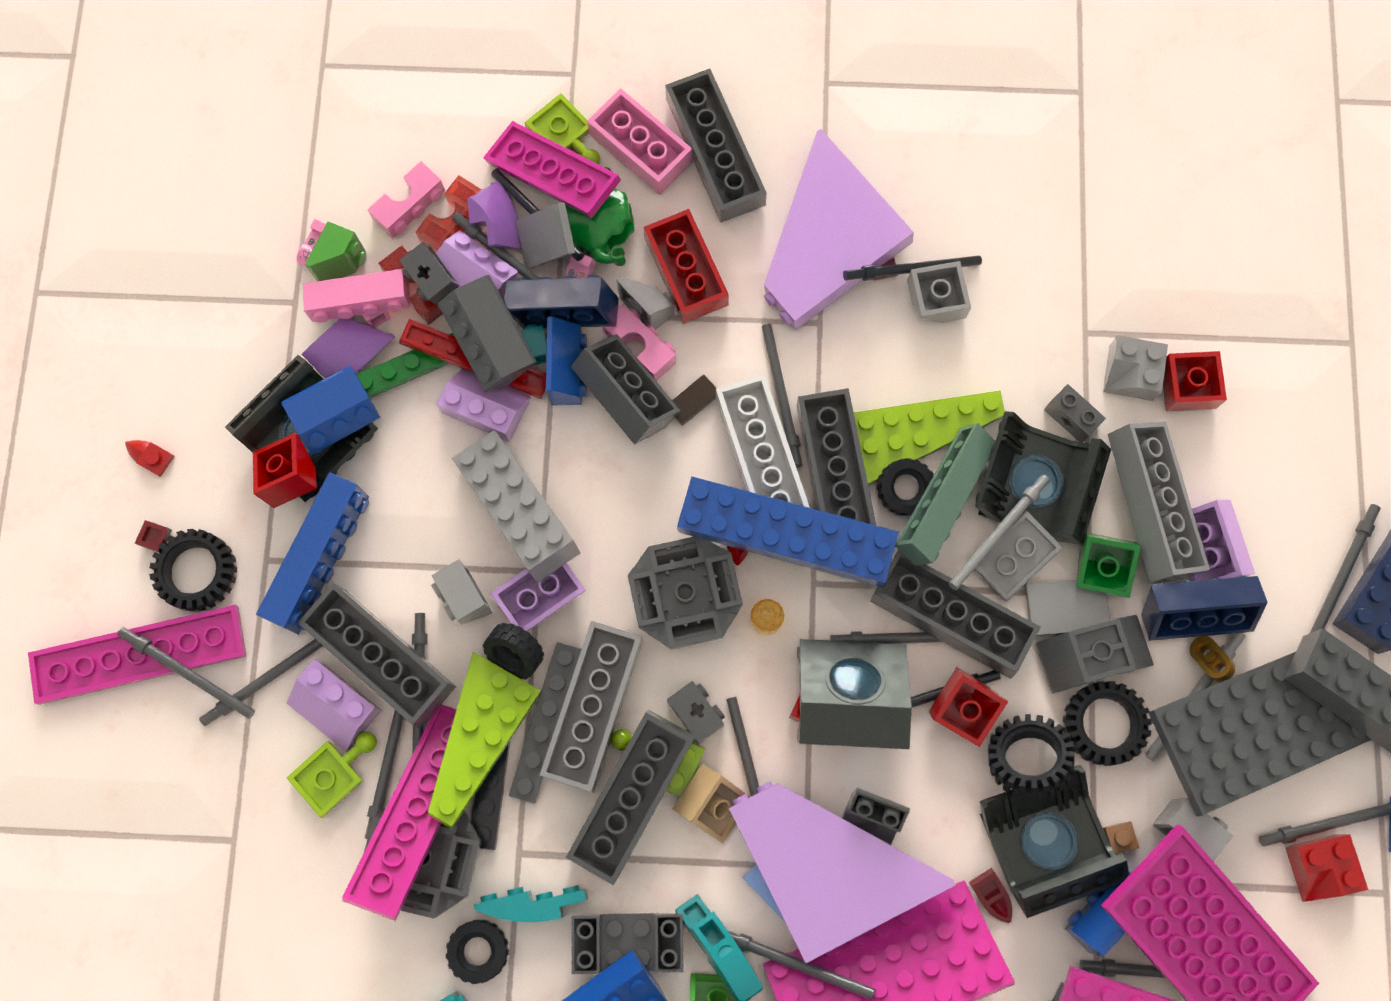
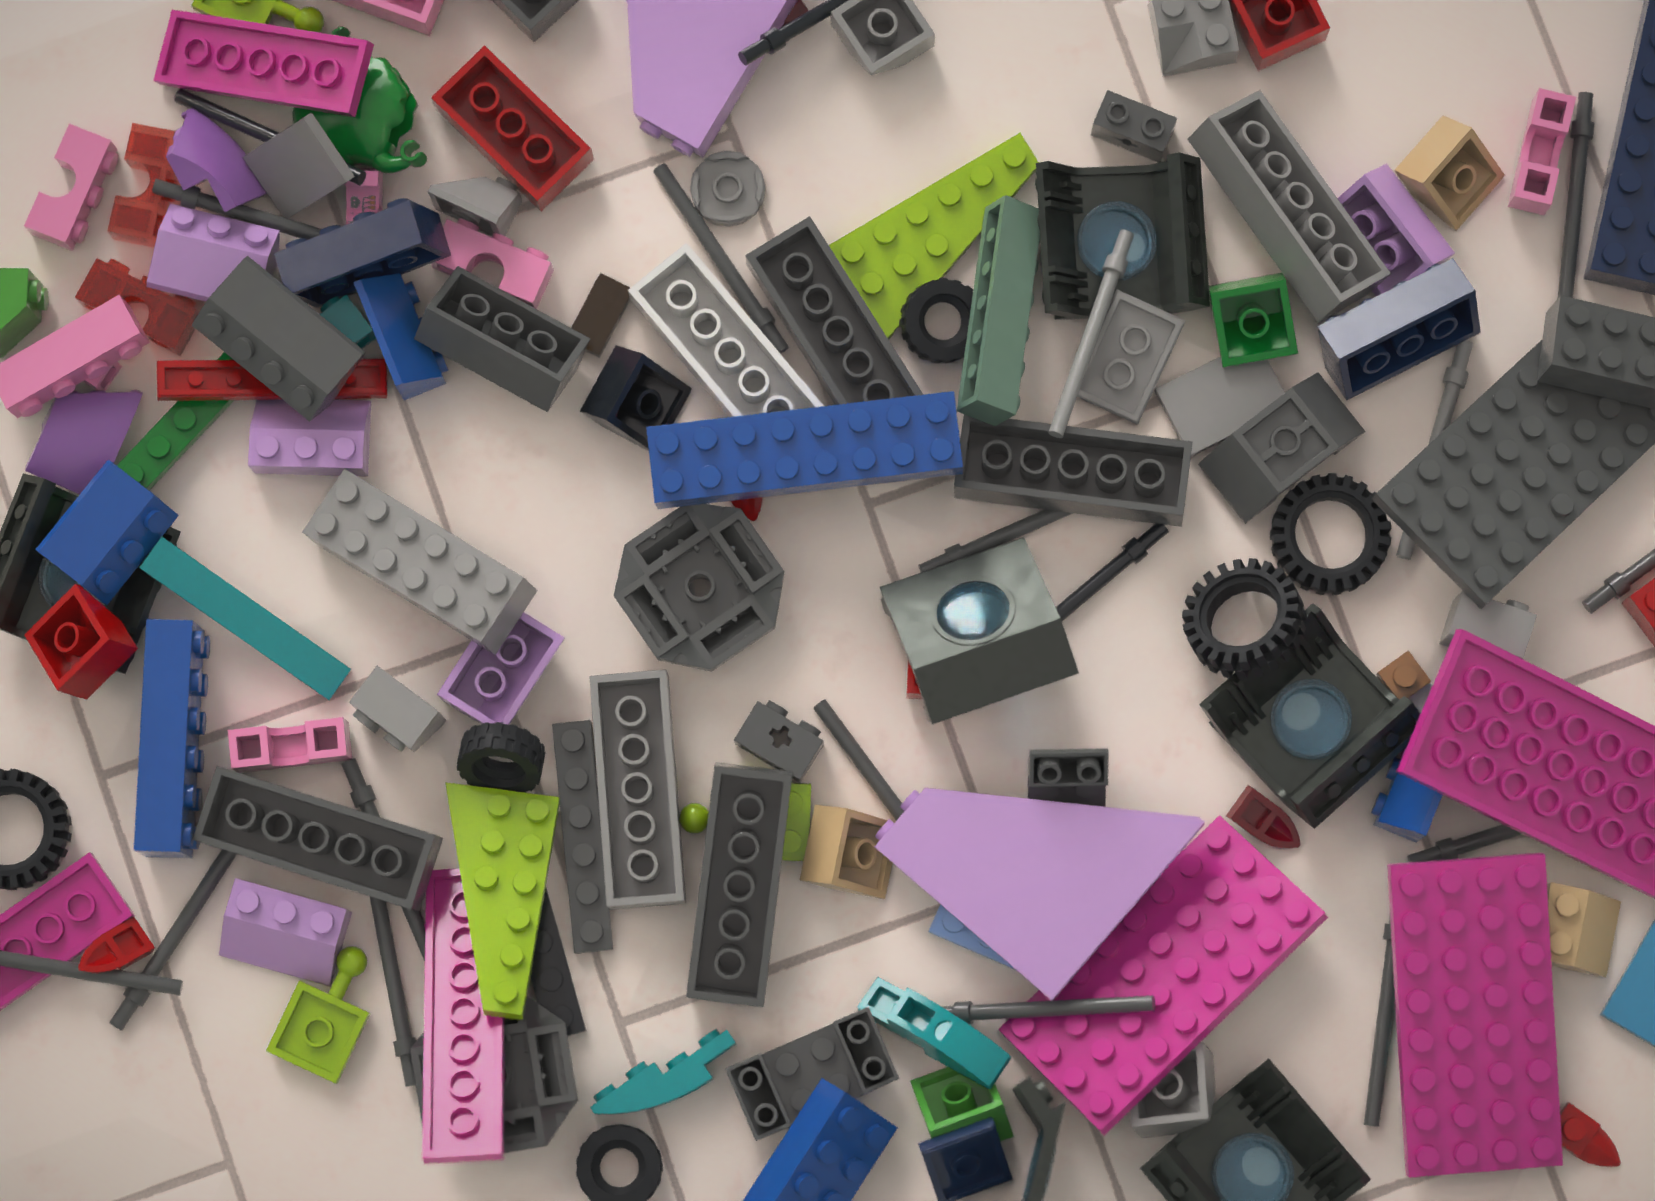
camera: 20 degrees left, 5 degrees up
(222, 672) = (117, 948): none -> red plate
(386, 589) = (290, 746): none -> bright pink arch
(393, 497) = (245, 618): none -> teal tile
(425, 259) = (180, 287): dark grey brick -> none
(694, 455) = (634, 395): none -> black slope
(770, 625) = (823, 588): clear yellow head -> none
(803, 354) = (727, 188): none -> light grey tile
(967, 707) = (1136, 587): red slope -> none
(1213, 660) = (1440, 392): pearl gold plate -> none
(1270, 520) = (1450, 171): none -> tan slope
(1327, 542) = (1540, 151): none -> bright pink arch

